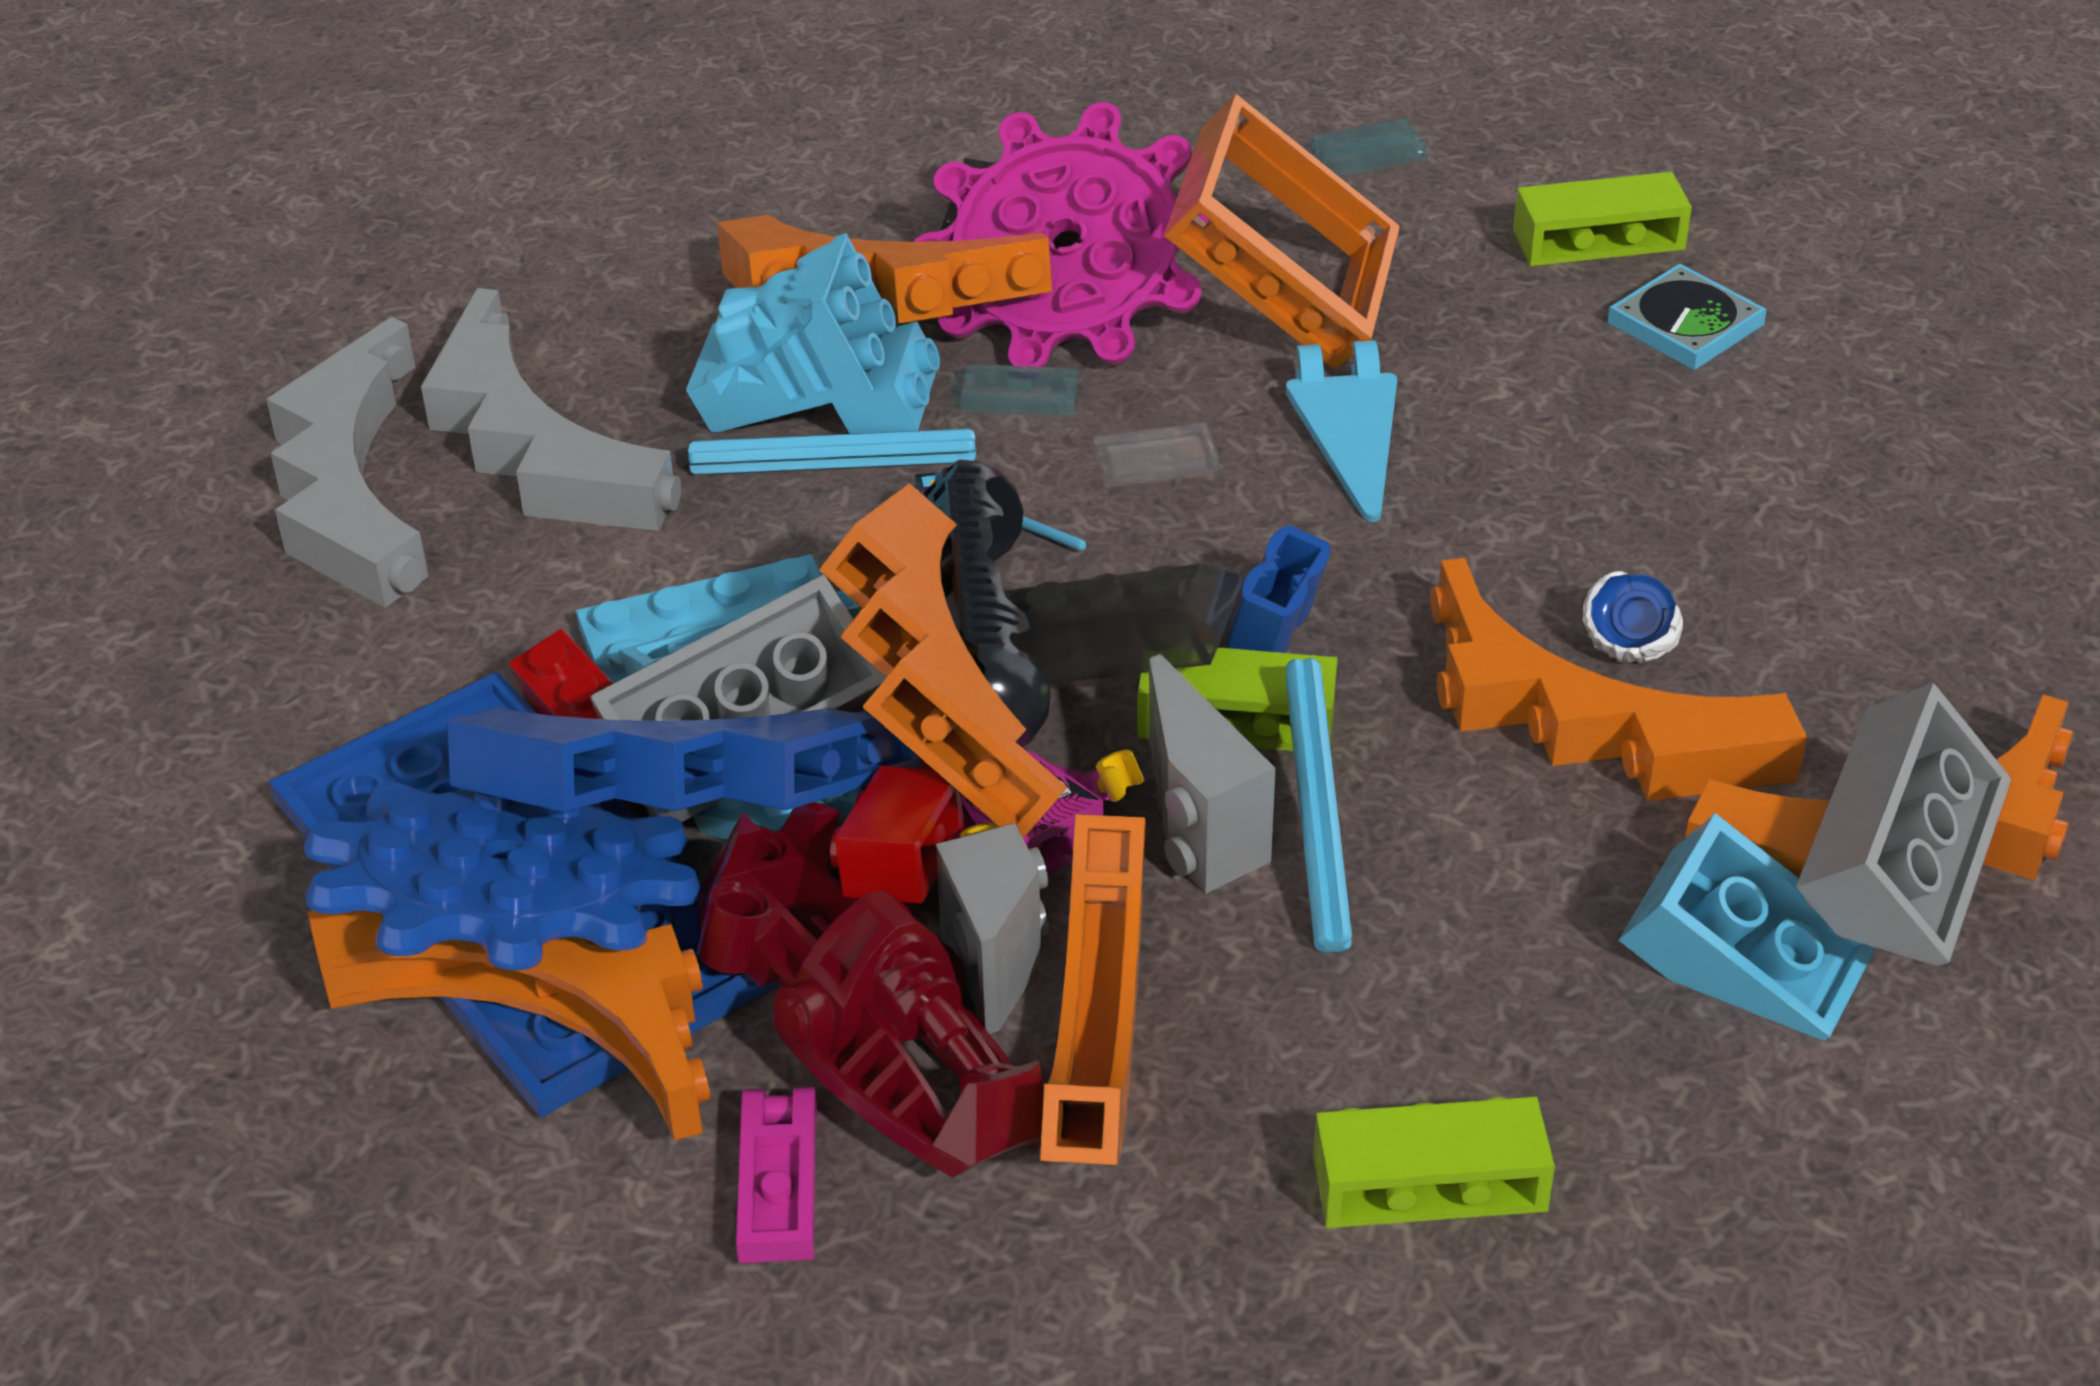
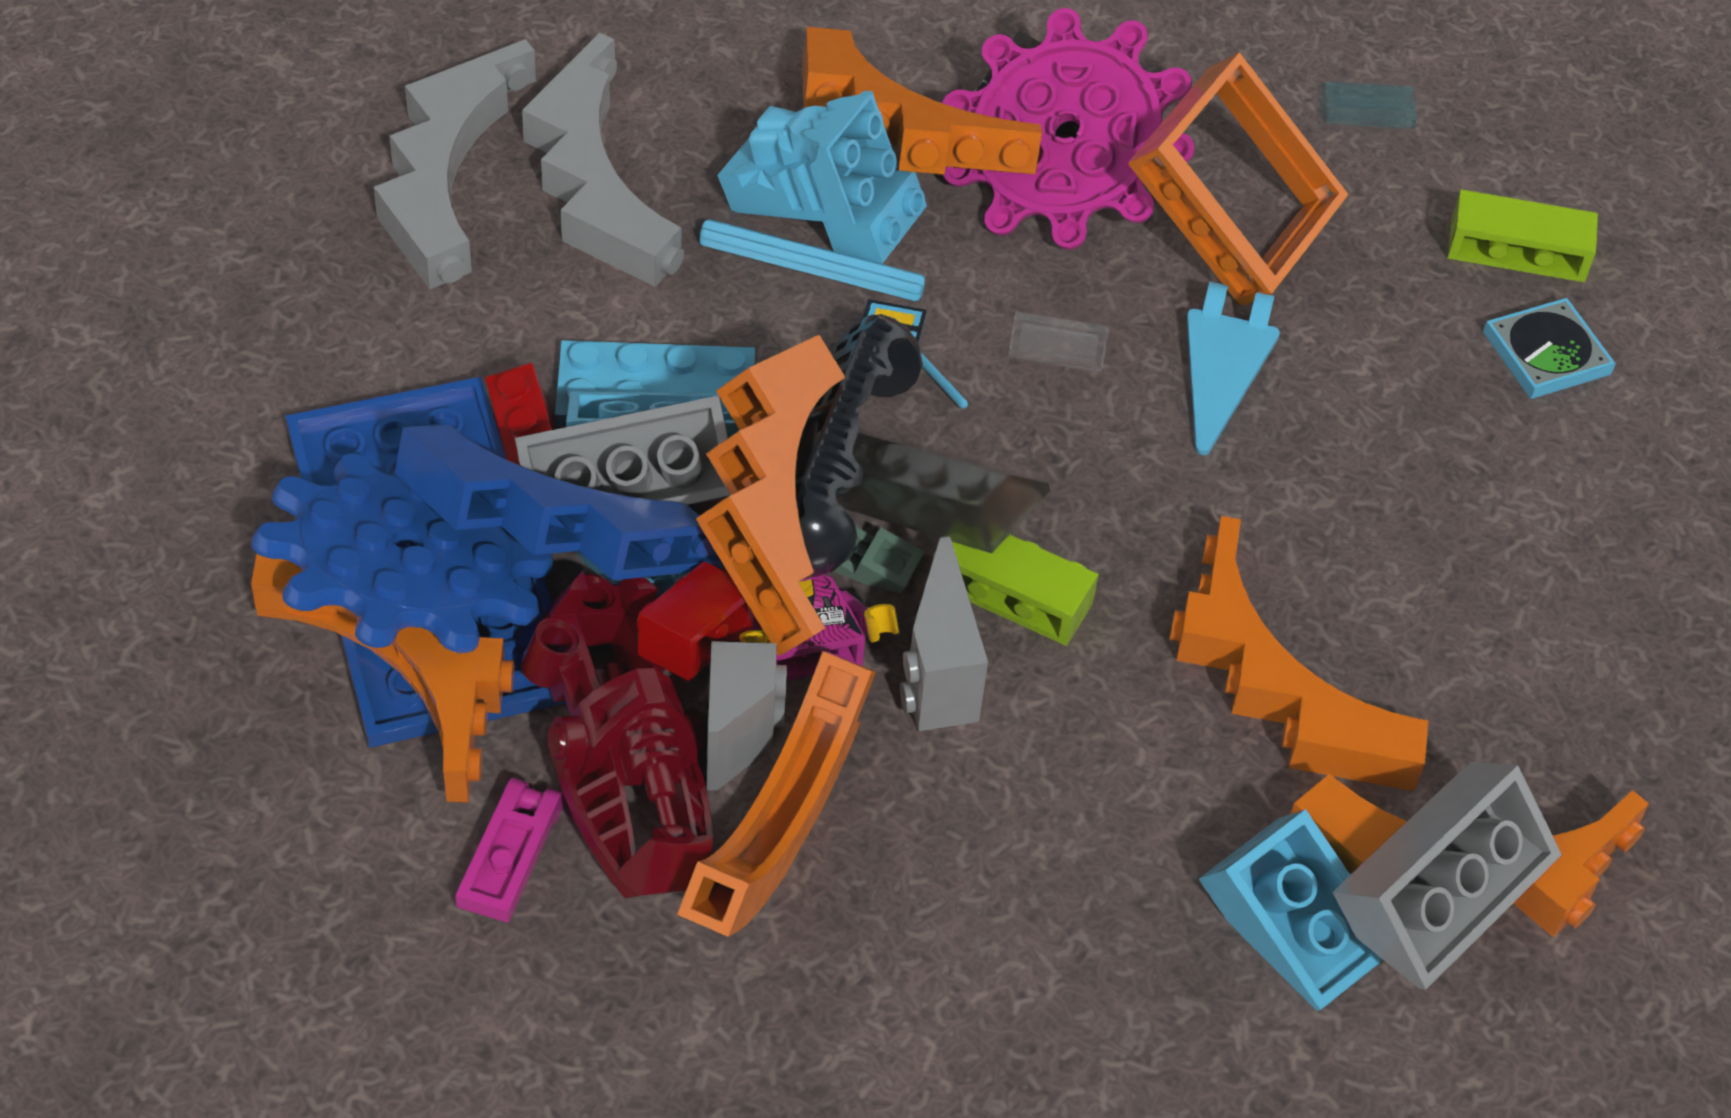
camera: 15 degrees right, 10 degrees up
(1020, 390) = (978, 253): clear light blue tile -> none
(1076, 728) = (881, 561): none -> sand green slope
(1279, 592) = (1082, 503): blue brick -> none
(1318, 807) = (1024, 692): medium azure axle -> none
(1432, 1162) = (969, 1005): lime brick -> none
(1632, 617) = (1351, 611): blue hair -> none

